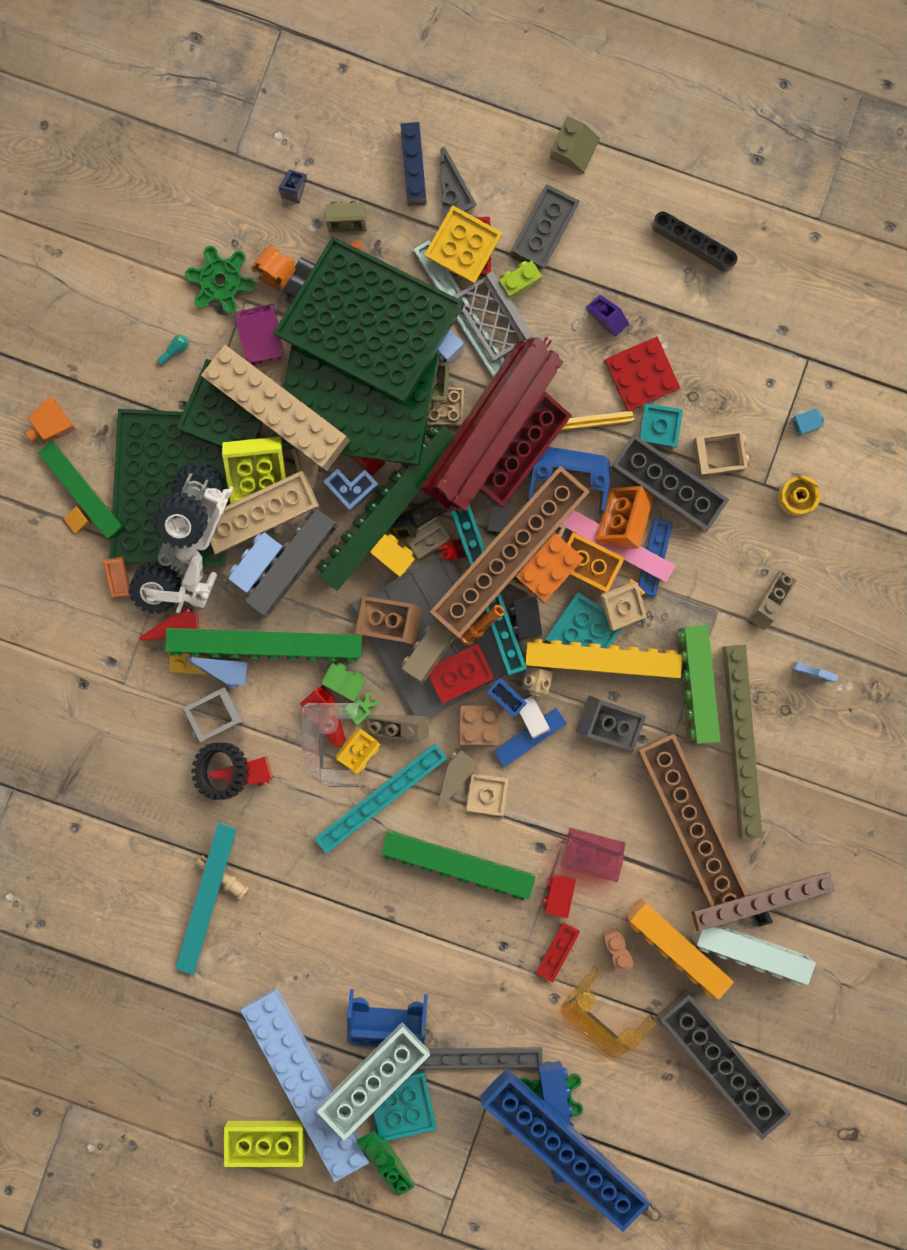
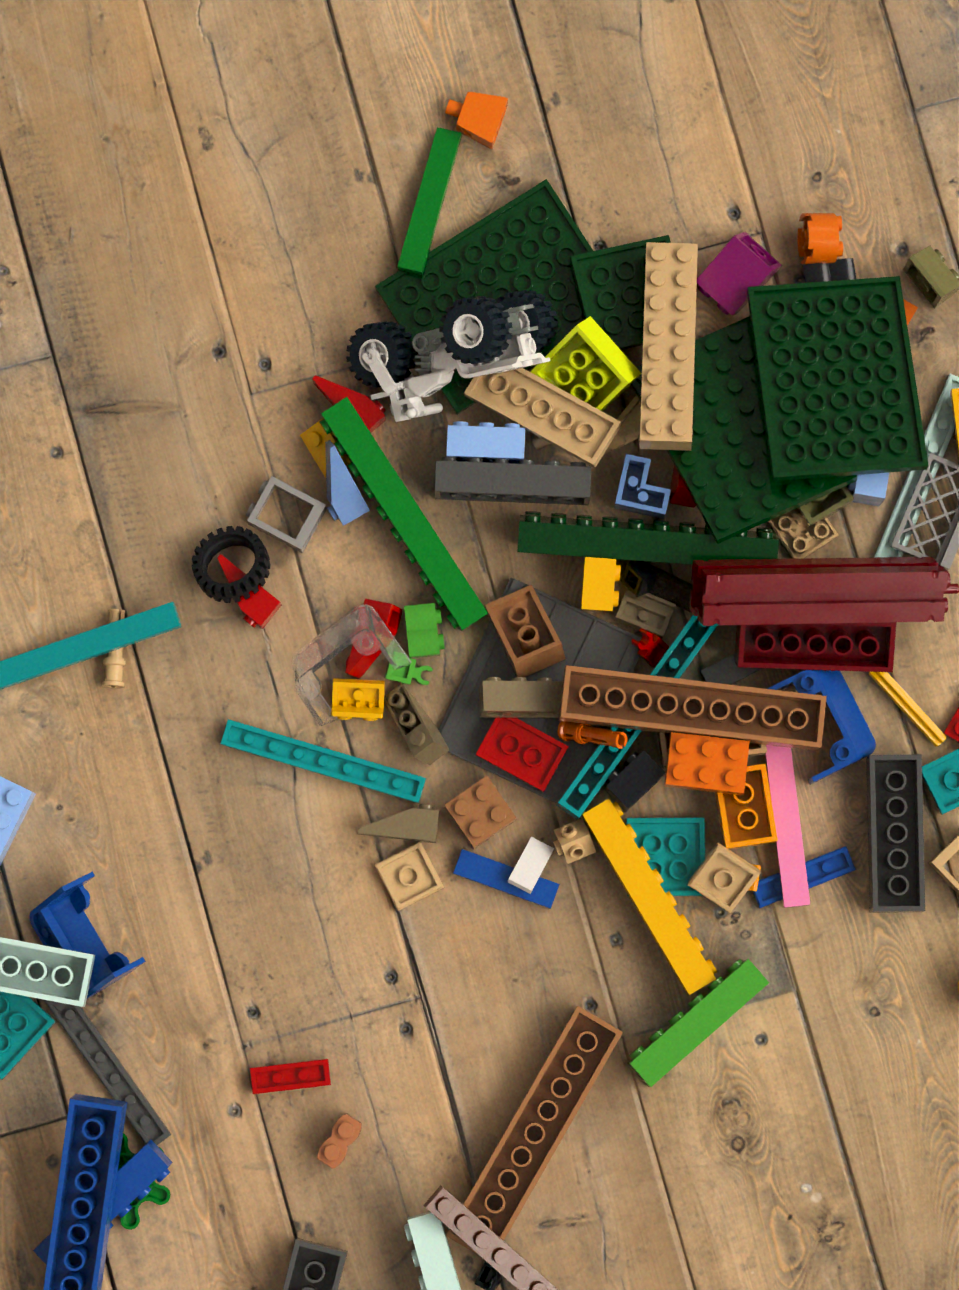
camera: 55 degrees right, 5 degrees down
(77, 520) = (394, 219): light orange slope -> none
(117, 577) = (362, 306): orange tile -> none
(177, 345) = (661, 194): teal piece -> none
(217, 267) = (774, 174): green plate -> none
(292, 186) = (924, 195): dark blue slope -> none
(458, 864) = (310, 897): green brick -> none
(507, 697) = (532, 817): blue torso -> none
(559, 895) = (354, 1033): red brick -> none
(577, 1009) = (231, 1207): clear yellow windscreen -> none
(593, 854) = (426, 1039): clear pink slope -> none
(610, 723) = (584, 957): dark grey slope -> none
(625, 517) = (823, 811): orange slope -> none
(675, 945) = (389, 1207): light orange brick -> none
(742, 742) = (668, 1117): olive brick -> none
(772, 600) = (850, 1041): dark tan slope -> none
(815, 672) = (802, 1143): light blue tile -> none

